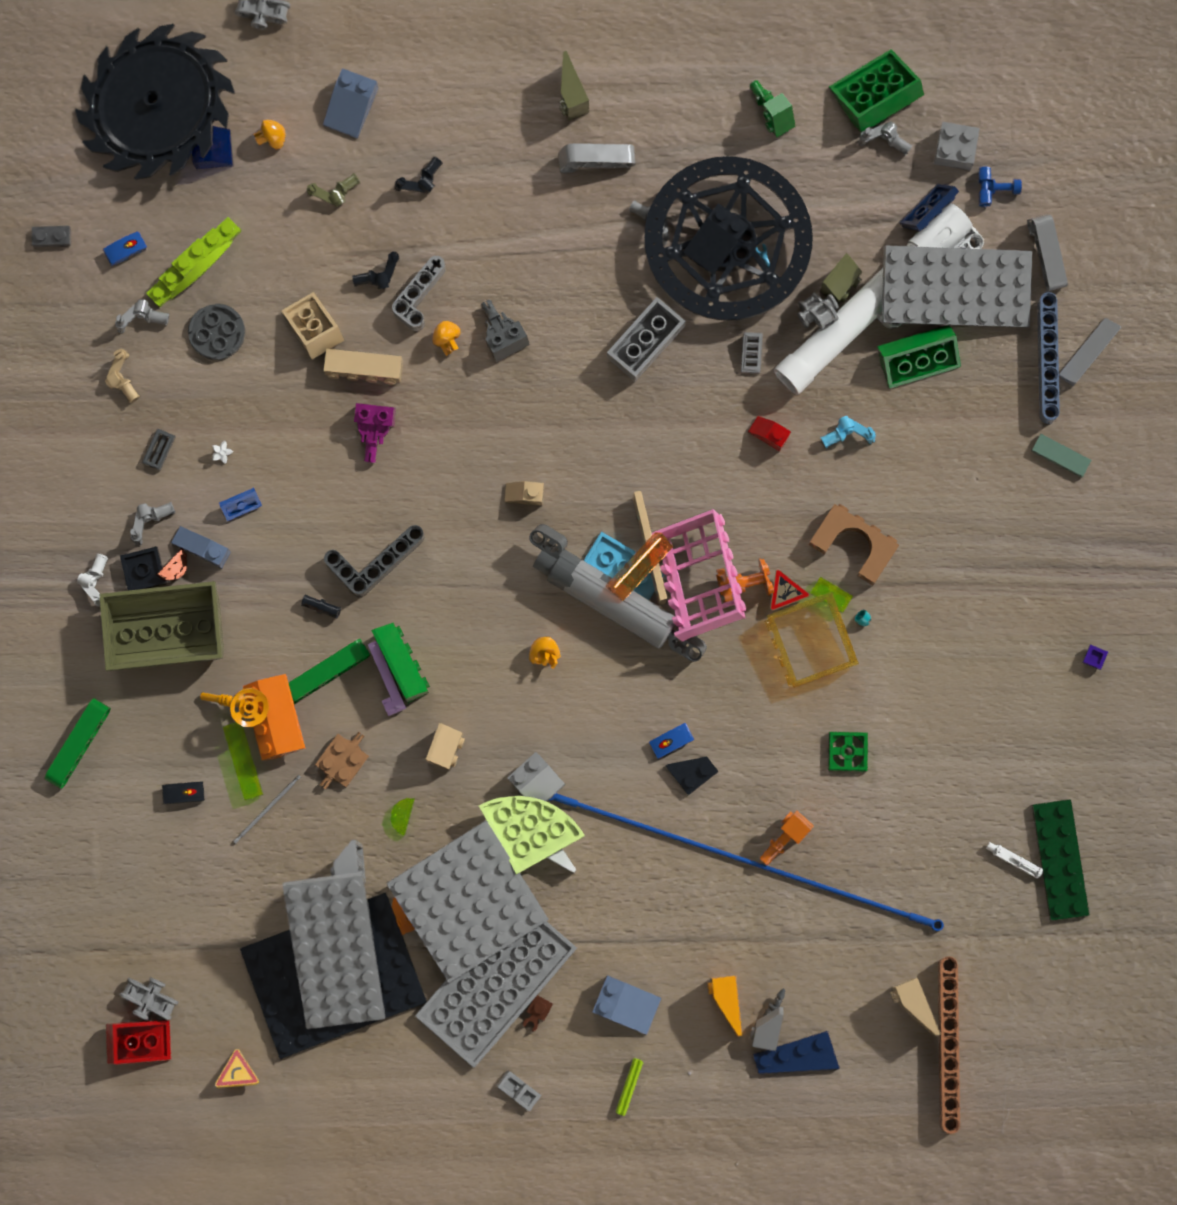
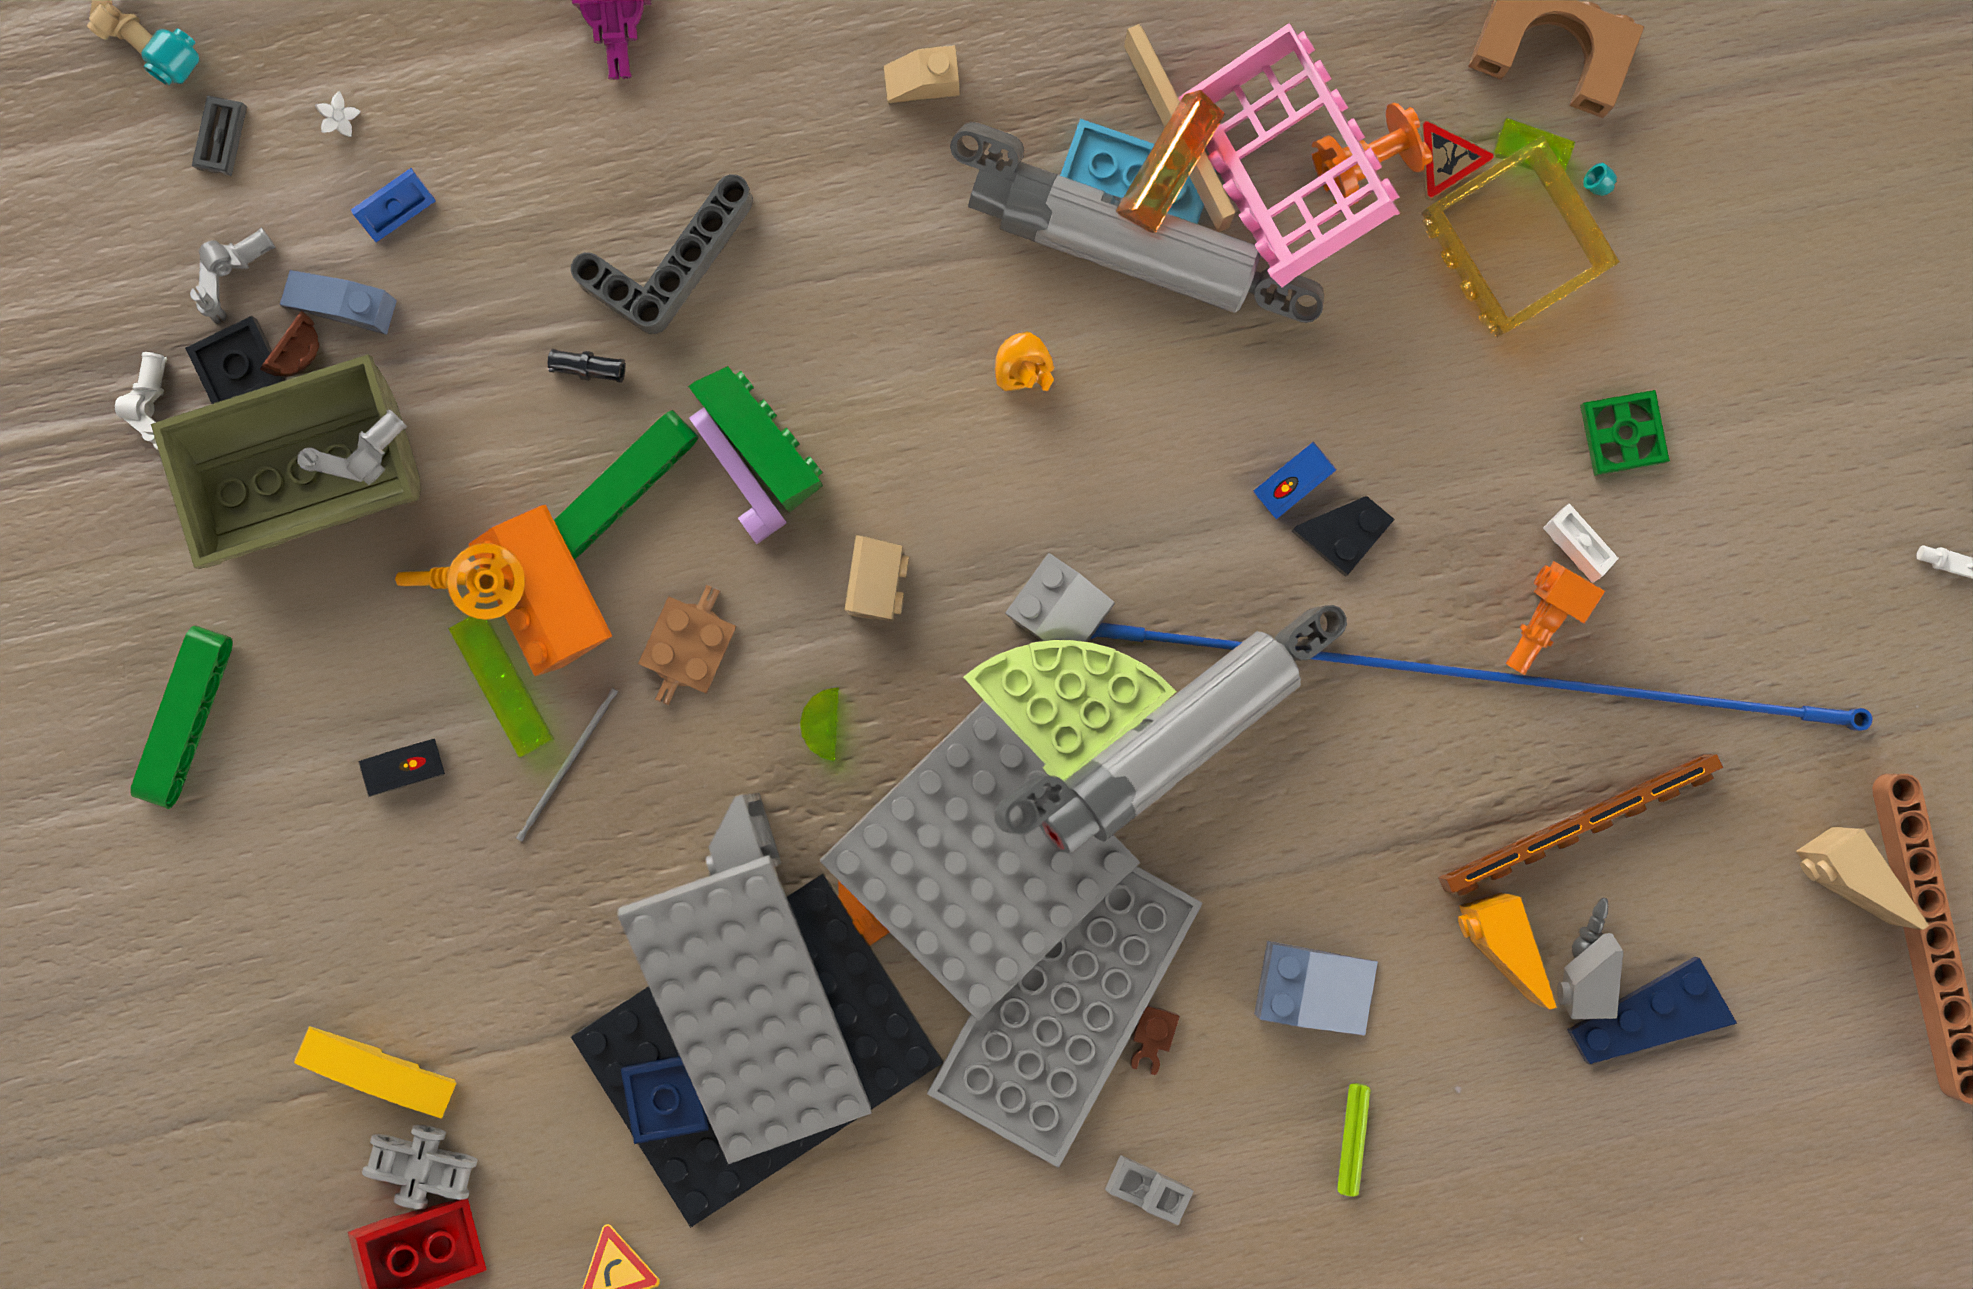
camera: 15 degrees left, 5 degrees up
(137, 945) = (375, 1072): none -> yellow slope
(144, 405) = (170, 56): none -> teal head
(203, 635) = (364, 461): none -> light grey pin
(280, 990) = (662, 1101): none -> dark blue tile
(577, 858) = (1172, 738): none -> piece
(788, 947) = (1566, 832): none -> dark orange plate
(811, 803) = (1580, 543): none -> white plate

